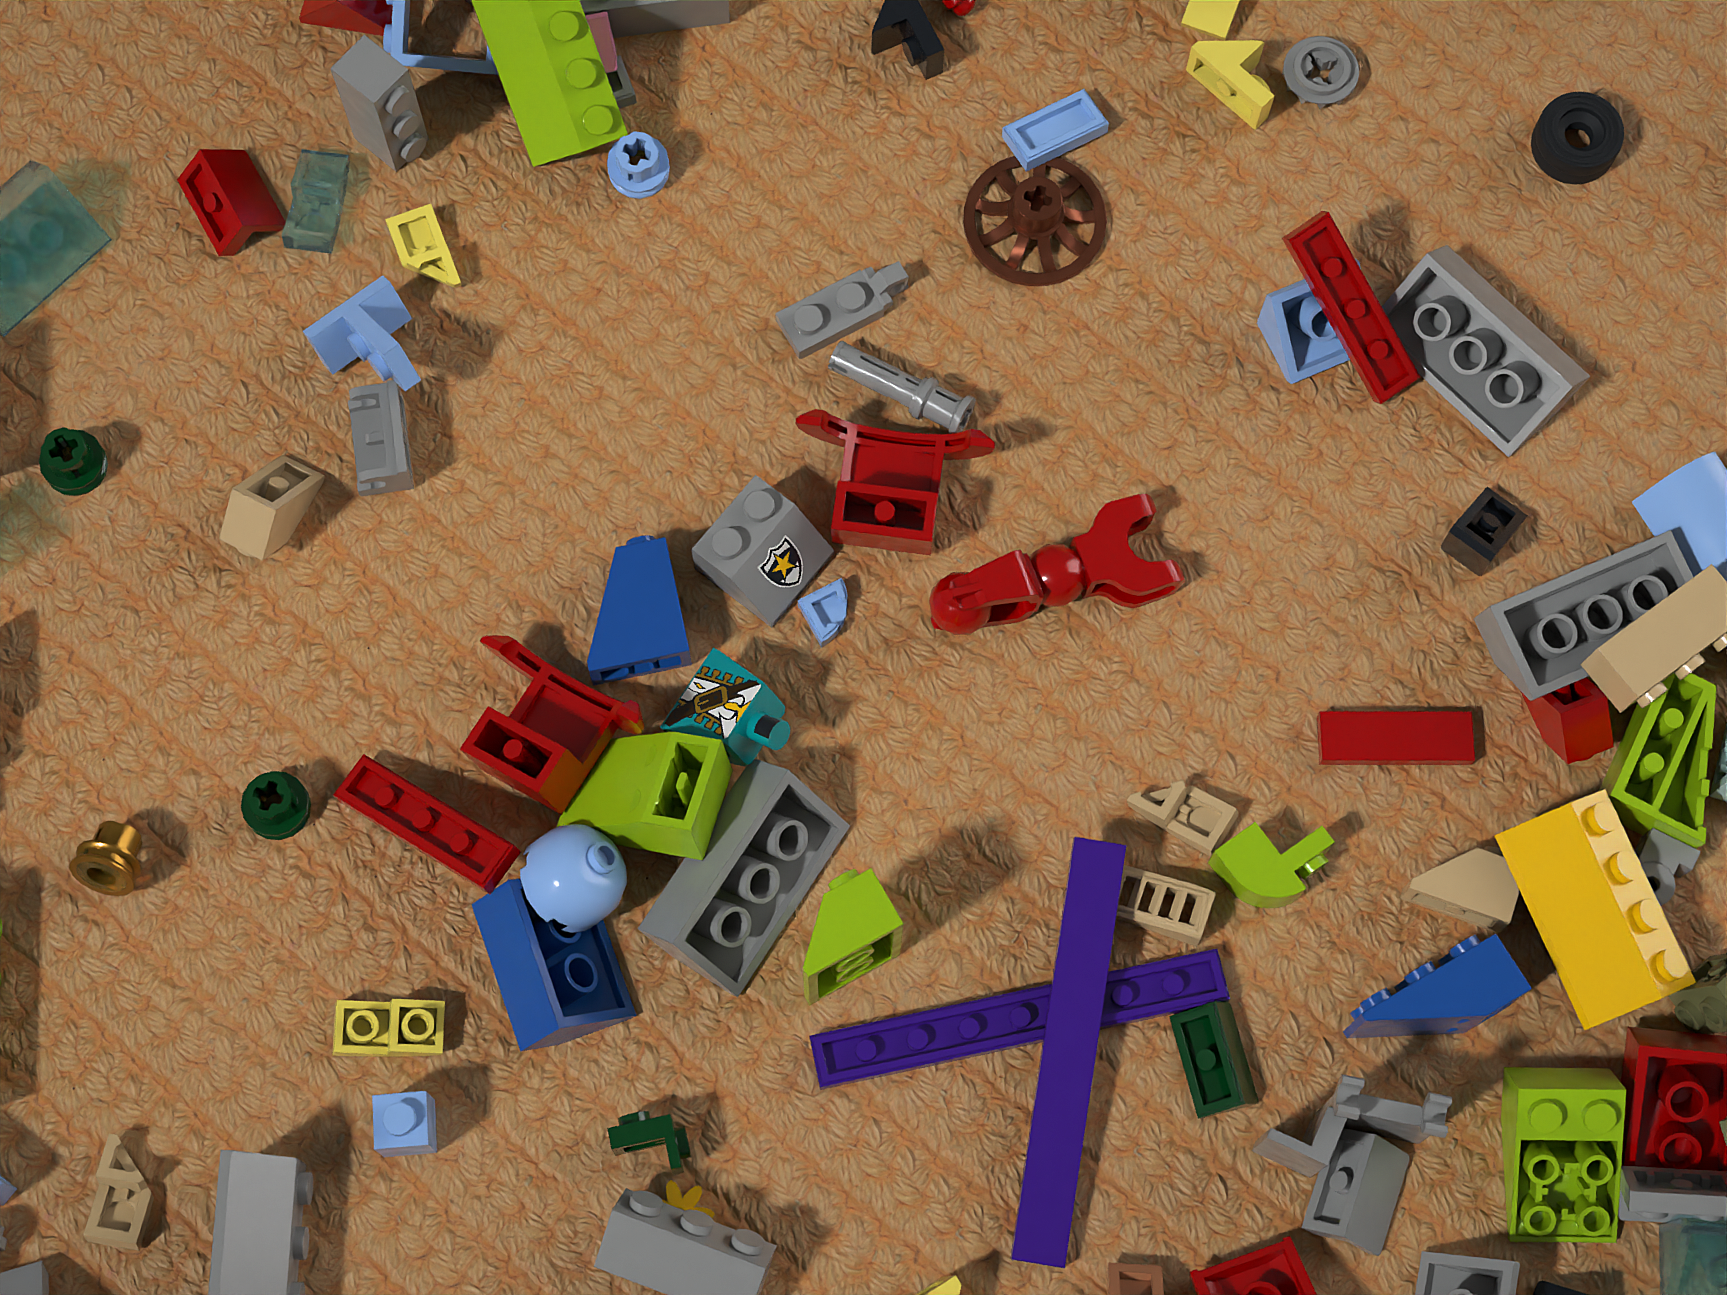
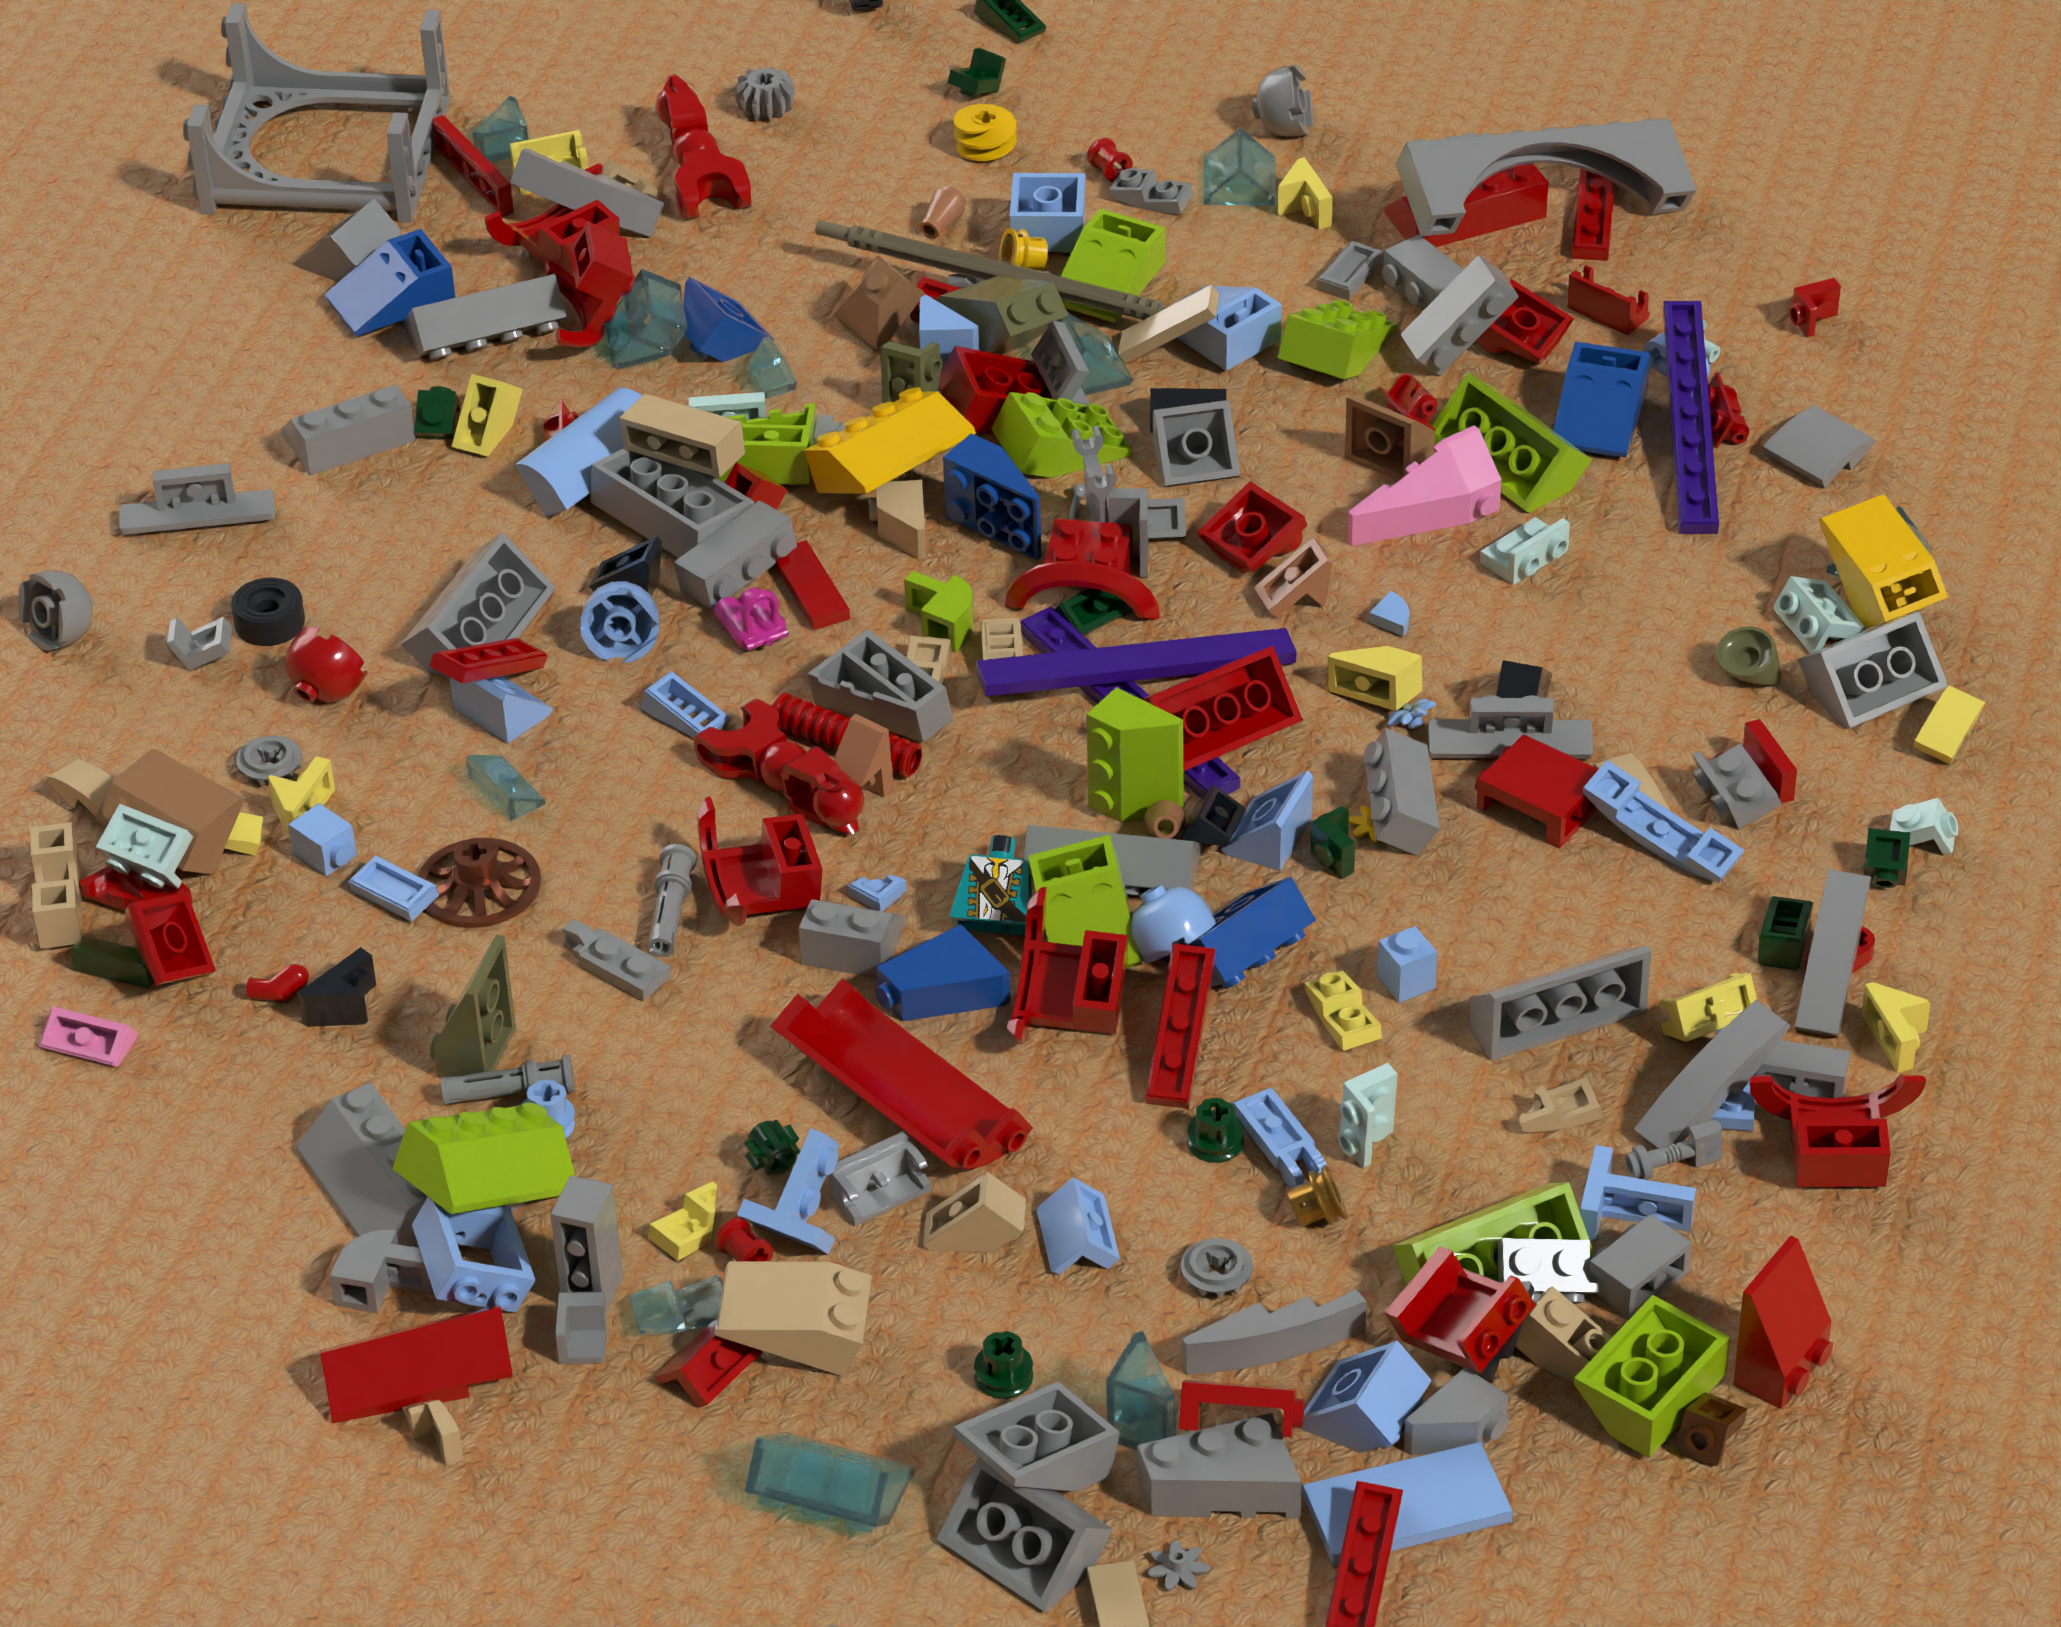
camera: 110 degrees left, 30 degrees down
(71, 708) = (1220, 1254): none -> light grey gear
(181, 954) = (1367, 1112): none -> light aqua bracket
(210, 607) = (1077, 1225): none -> light blue panel
(218, 277) = (796, 1310): none -> tan slope
(232, 866) = (1278, 1135): none -> light blue hinge
(321, 102) = (581, 1327): none -> light grey panel
(338, 275) = (739, 1242): none -> red bush
(471, 349) = (772, 1147): none -> dark green gear
(501, 510) = (903, 1078): none -> red cylinder
(695, 162) = (507, 1081): none -> light grey pin
(721, 1080) = (1273, 823): none -> light blue slope
(754, 1018) = (1213, 818): none -> black slope
(768, 956) = (1164, 810): none -> nougat cone
(773, 123) = (480, 1020): none -> olive slope
(928, 1096) = (1230, 706): none -> red slope
(1010, 650) = (866, 755): none -> nougat slope
(1091, 668) = (828, 729): none -> red piece
(1139, 731) = (881, 686): none -> light grey wedge
(1154, 79) = (322, 839): none -> light blue brick
(1176, 288) = (503, 785): none -> clear light blue slope
(1244, 483) = (672, 687): none -> light blue slope
(1265, 1061) = (1090, 557): none -> red piece
(1346, 643) = (752, 618): none -> dark pink piece
(1376, 1087) = (1078, 492): none -> light grey hinge
(1393, 488) = (620, 621): none -> light blue cylinder
(1437, 151) = (323, 667): none -> red cylinder
(1464, 660) = (735, 554): none -> light grey brick
(1547, 49) = (200, 645): none -> light grey bracket

